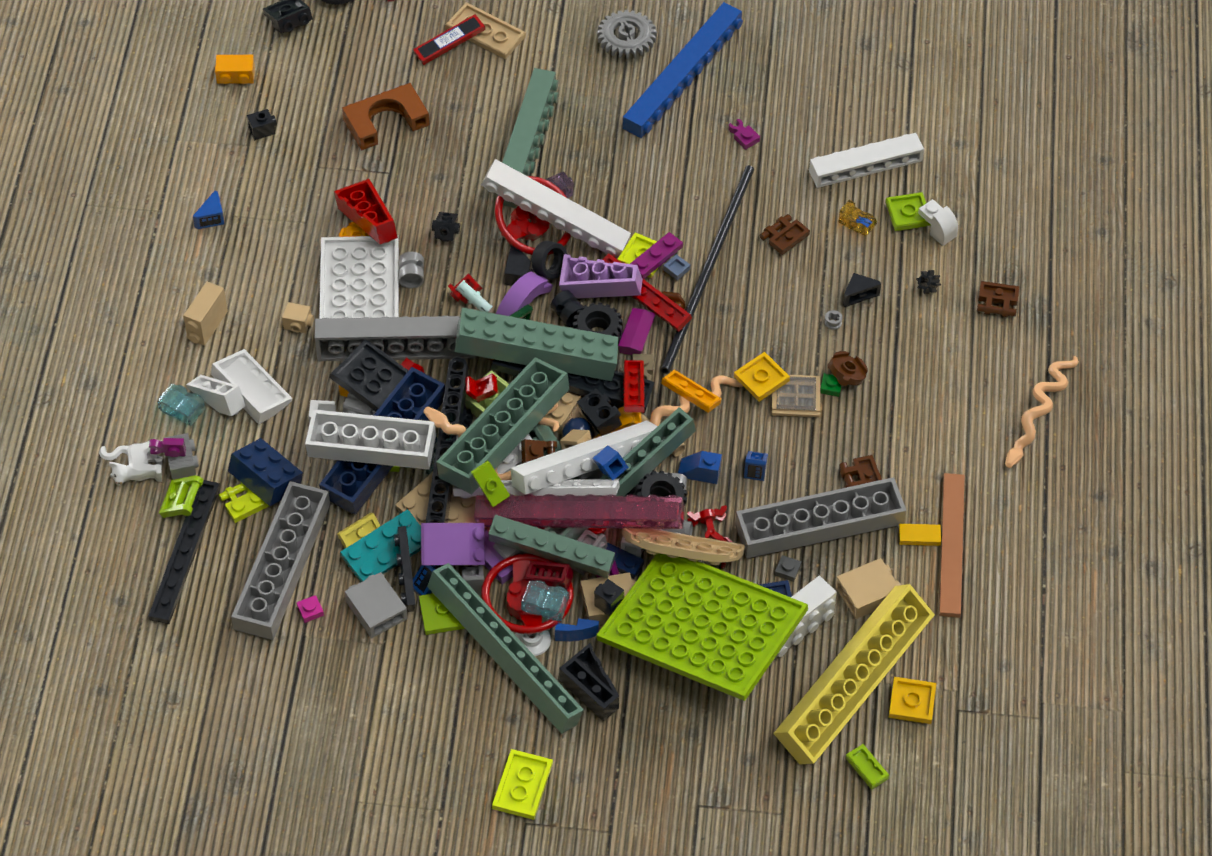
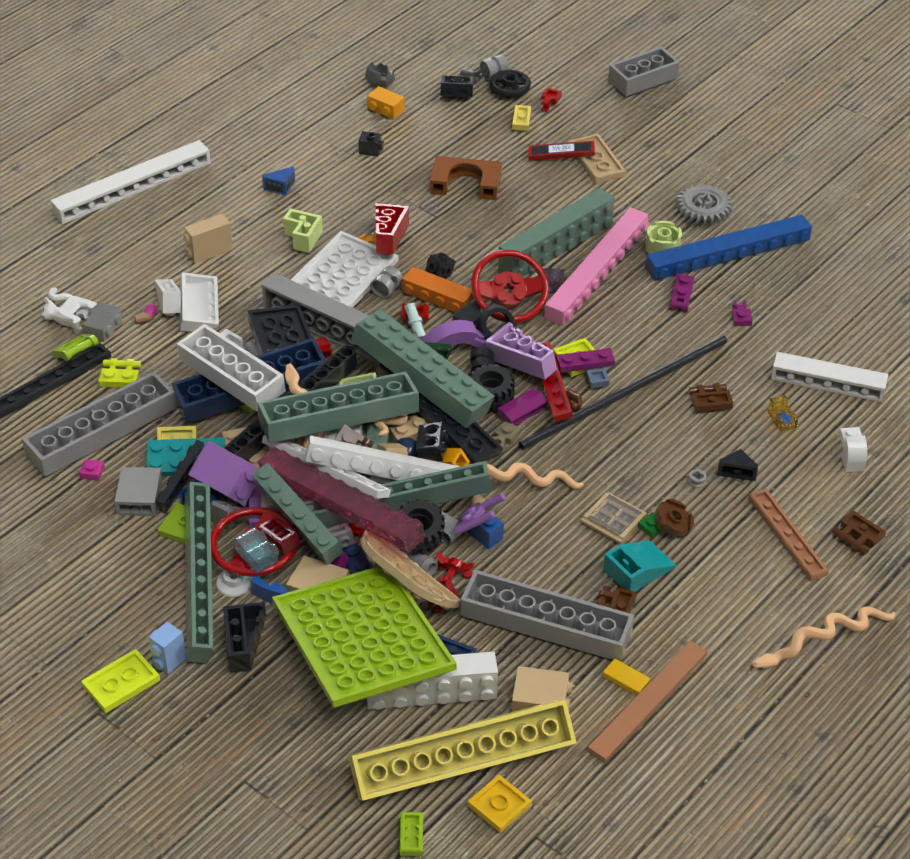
camera: 35 degrees right, 10 degrees down
(61, 290) = (130, 181): none -> white brick
(169, 446) = (94, 306): magenta plate -> none
(181, 404) = (137, 289): clear light blue brick -> none
(200, 40) = (379, 75): none -> dark grey hair
(214, 425) = (148, 314): none -> arm
(263, 471) = (146, 354): dark blue piece -> none
(284, 251) = (304, 229): none -> yellowish green brick
(297, 318) = (270, 268): tan brick -> none
(380, 20) = (521, 118): none -> light yellow plate
(464, 253) = (436, 290): none -> orange brick
(482, 387) = (347, 375): red bracket -> none
(490, 483) = (283, 438): lime plate -> none
(541, 732) = (167, 647): none -> light blue brick
(555, 209) = (526, 285): white brick -> none
(584, 142) = (596, 266): none -> bright pink brick
(608, 597) = (308, 573): black brick -> none
(610, 462) = (393, 473): blue brick -> none
(622, 92) = (662, 236): none -> yellowish green brick
(633, 386) = (476, 438): red tile -> none
(677, 138) = (682, 292): none -> magenta plate
(689, 464) = (475, 515): none -> medium lavender plate
(691, 391) = (522, 466): light orange tile -> none
(755, 465) = (530, 549): blue slope -> none
(761, 376) = (593, 486): yellow plate -> none
(788, 568) = (488, 641): dark grey plate -> none
(852, 429) = (636, 564): none -> teal slope
(904, 211) = (828, 429): lime plate -> none
(928, 281) = (804, 488): black gear -> none
(943, 331) = (788, 535): none -> nougat tile

